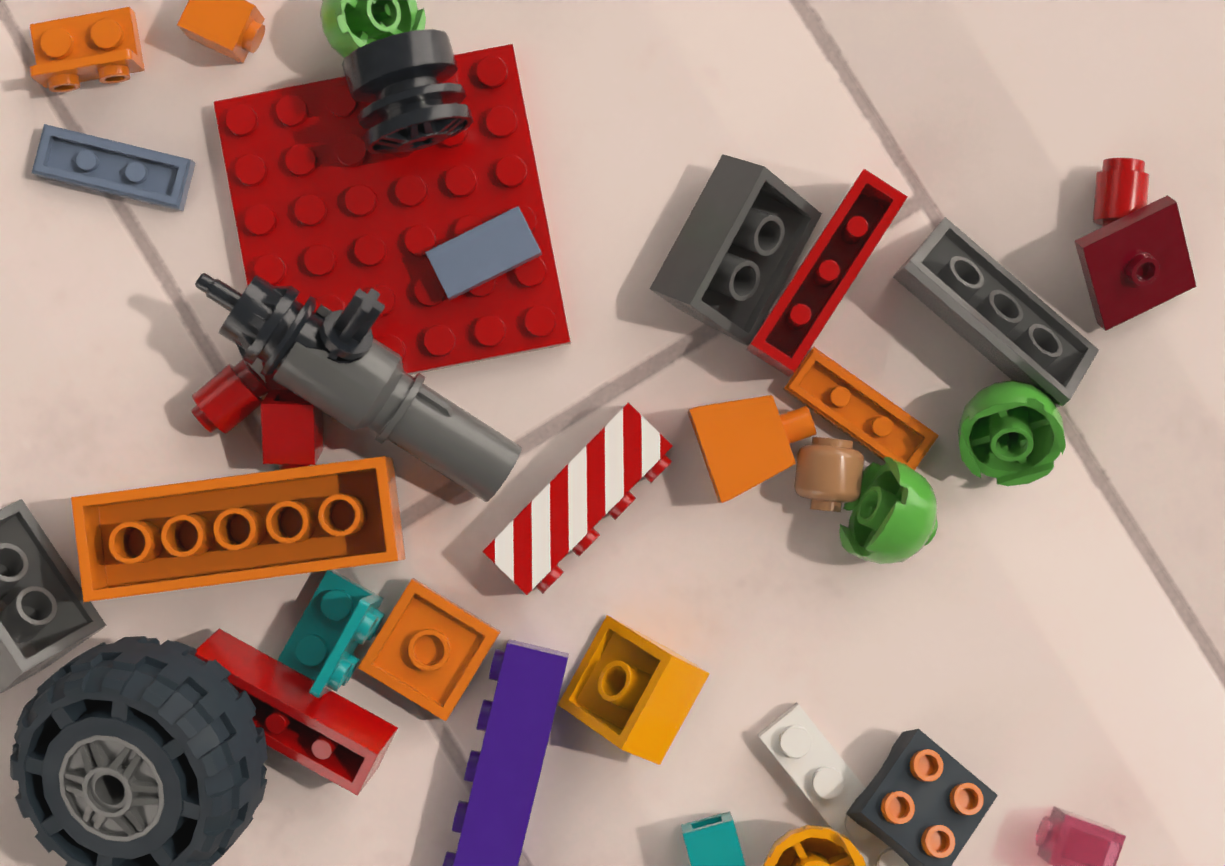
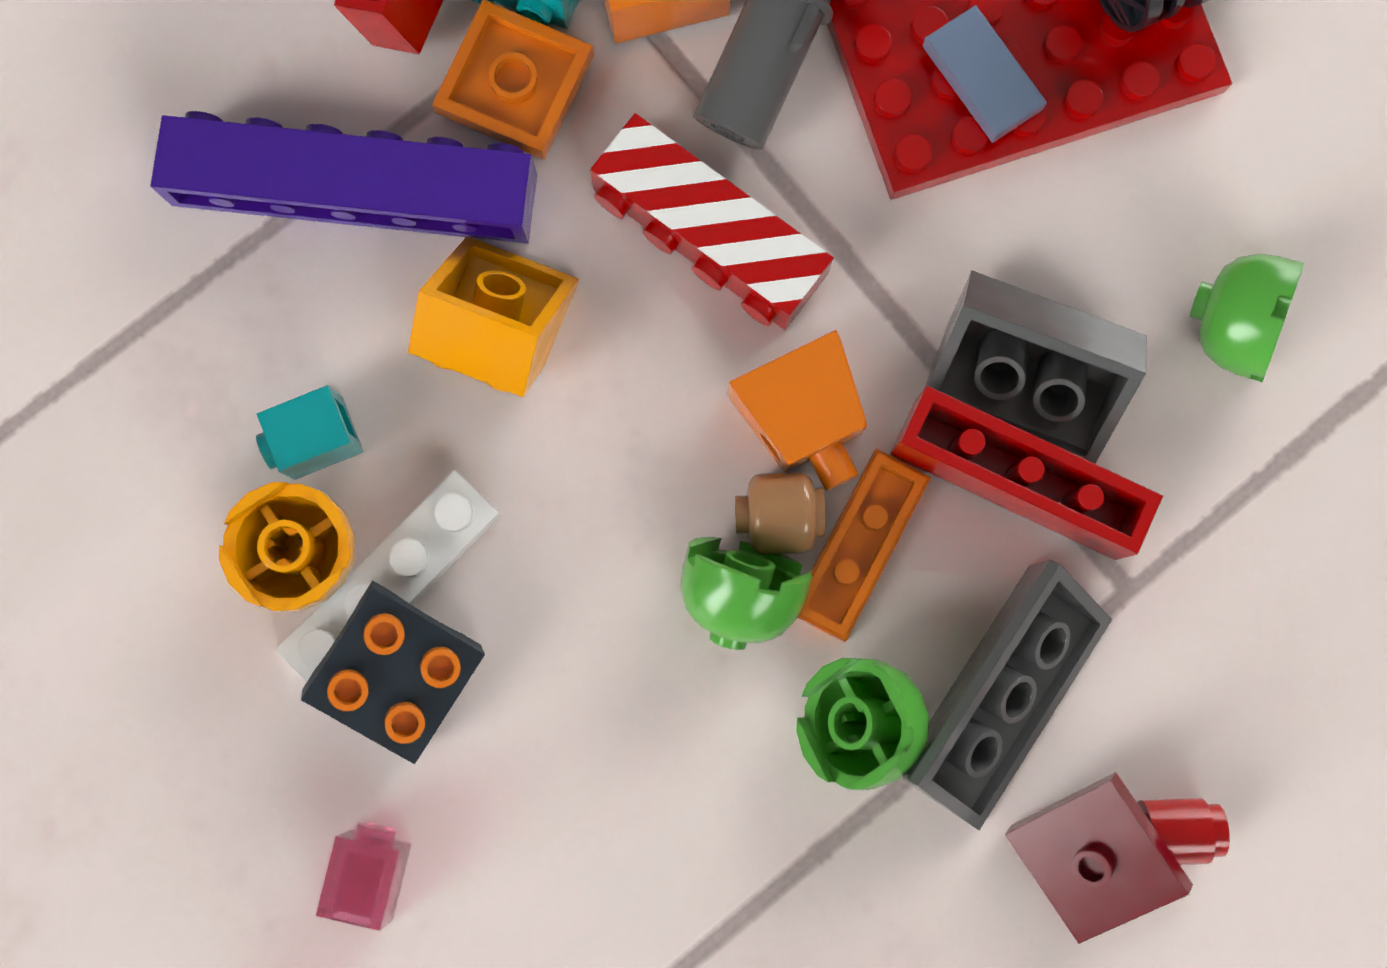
camera: 75 degrees right, 5 degrees down
(714, 70) = (1246, 312): none -> bright green cylinder

